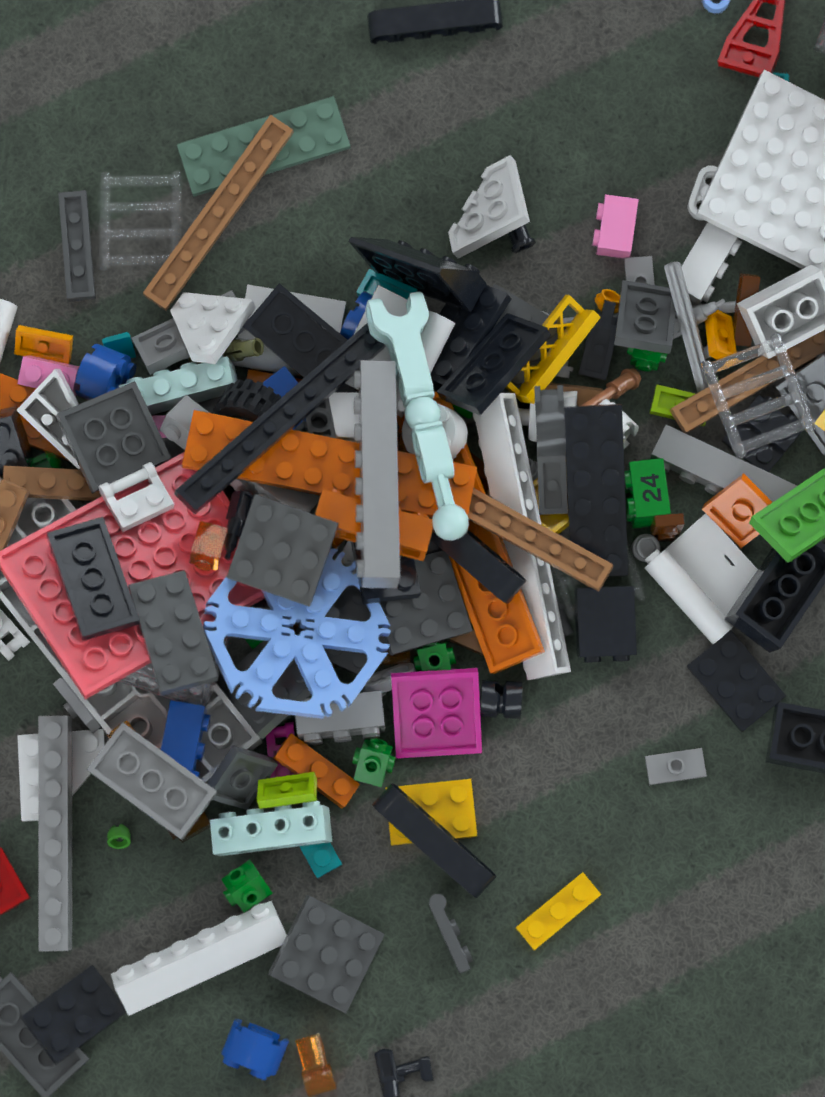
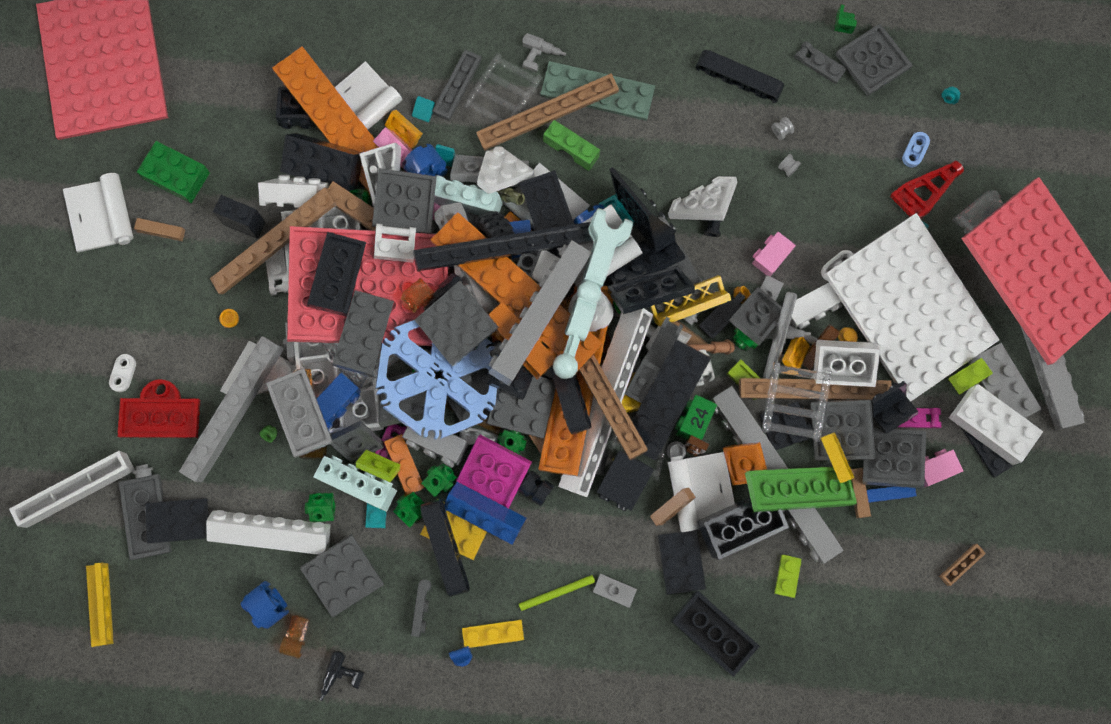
camera: 25 degrees right, 0 degrees up
(52, 303) = (423, 109): none -> teal slope
(149, 133) = (537, 46): none -> light grey piece
(292, 237) = (581, 150): none -> bright green arch
(359, 820) = (409, 509): none -> green brick
(456, 768) = (484, 513): none -> blue brick
(531, 56) = (782, 128): none -> light grey wheel
(537, 961) = (461, 656): none -> blue plate
(568, 100) = (789, 165): none -> light grey wheel
(605, 813) = (556, 593): none -> lime bar
(684, 618) = (672, 506): none -> medium nougat piece
(771, 274) = (848, 334): none -> light orange plate

